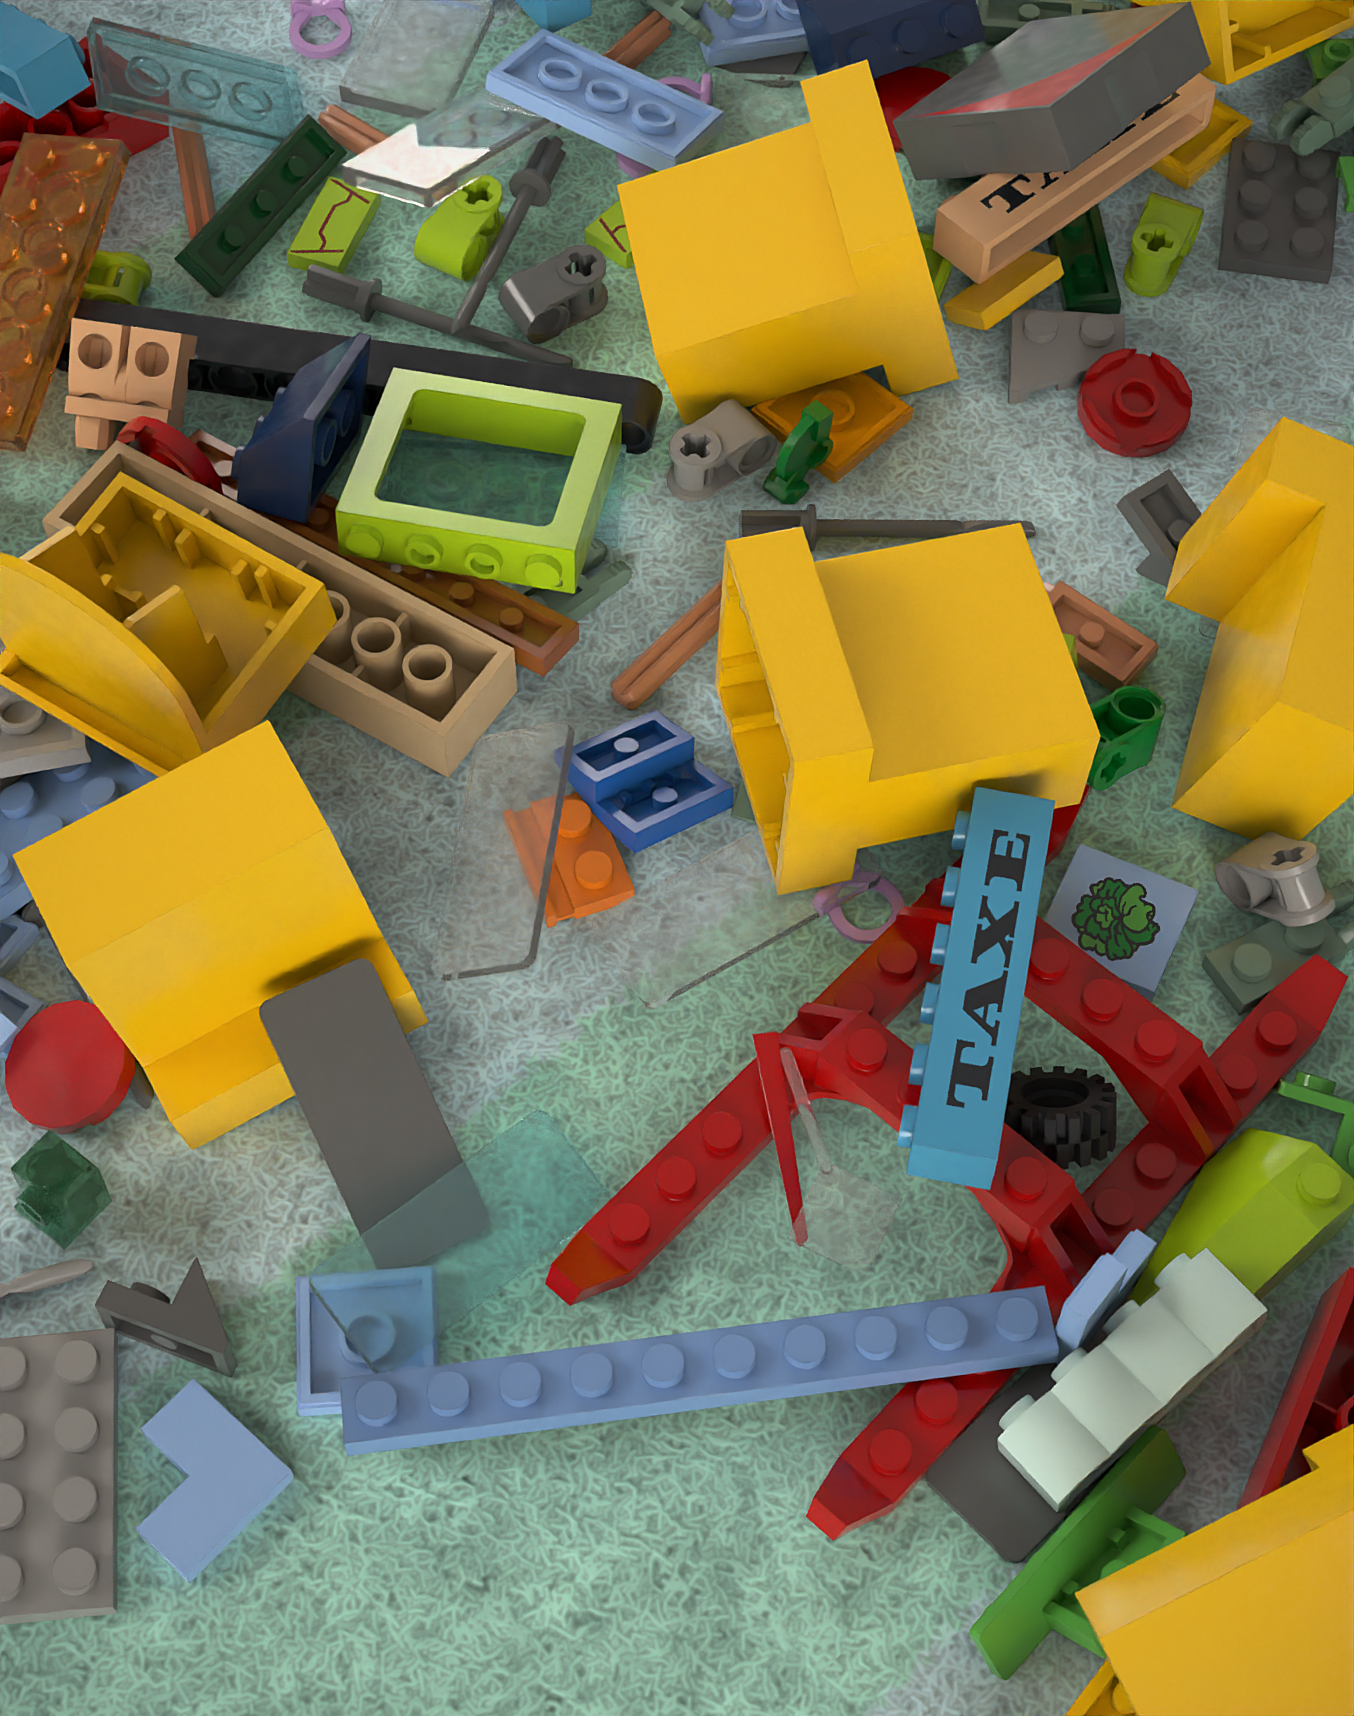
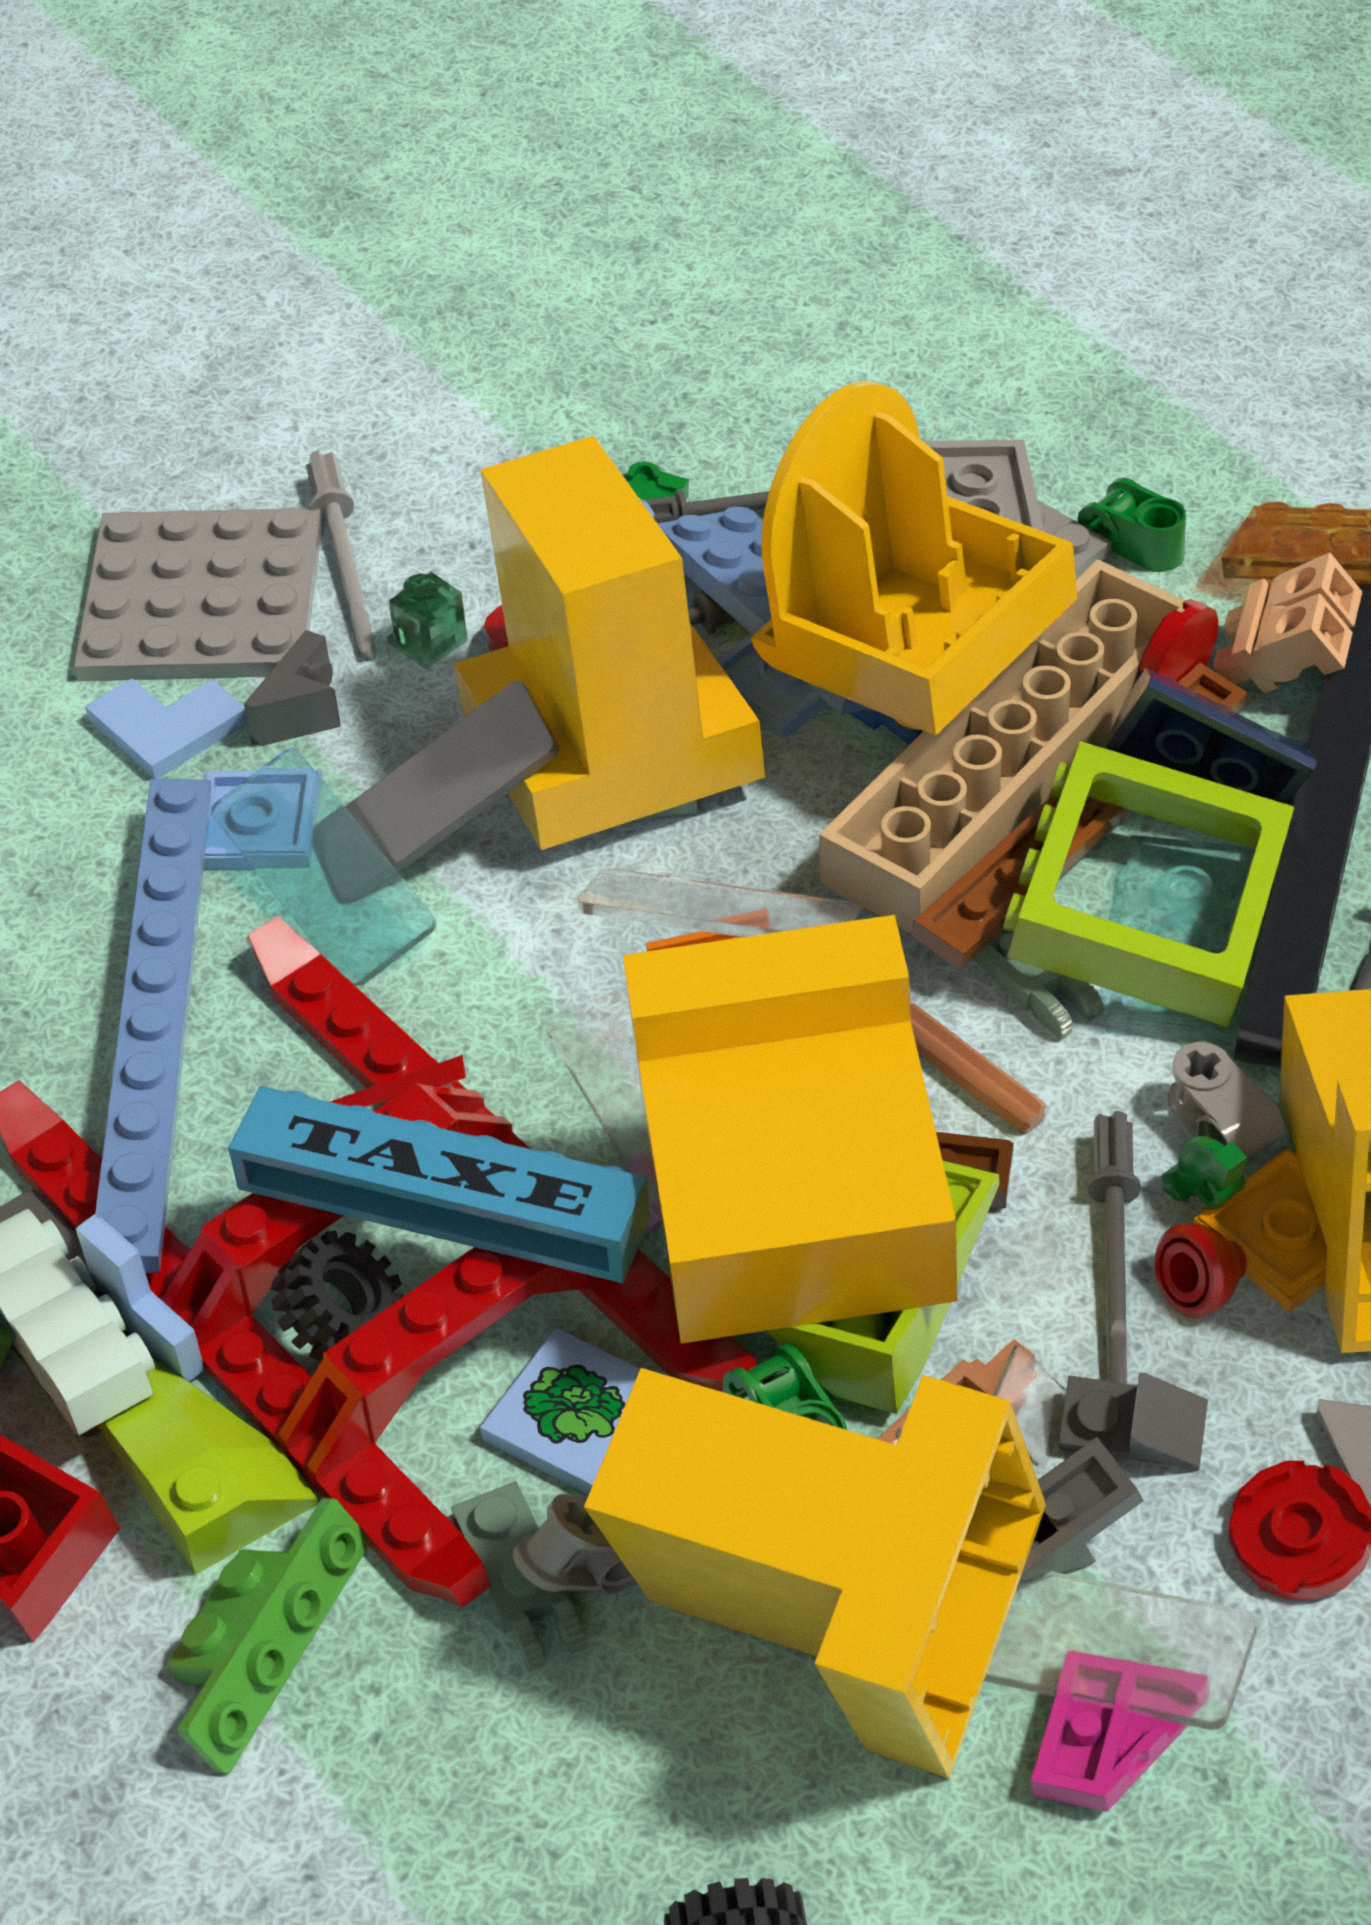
camera: 100 degrees right, 10 degrees down
(899, 463) = (1198, 1268): none -> red brick
(1056, 512) = (1135, 1421): none -> dark grey slope
(1093, 584) = (1036, 1403): none -> clear piece

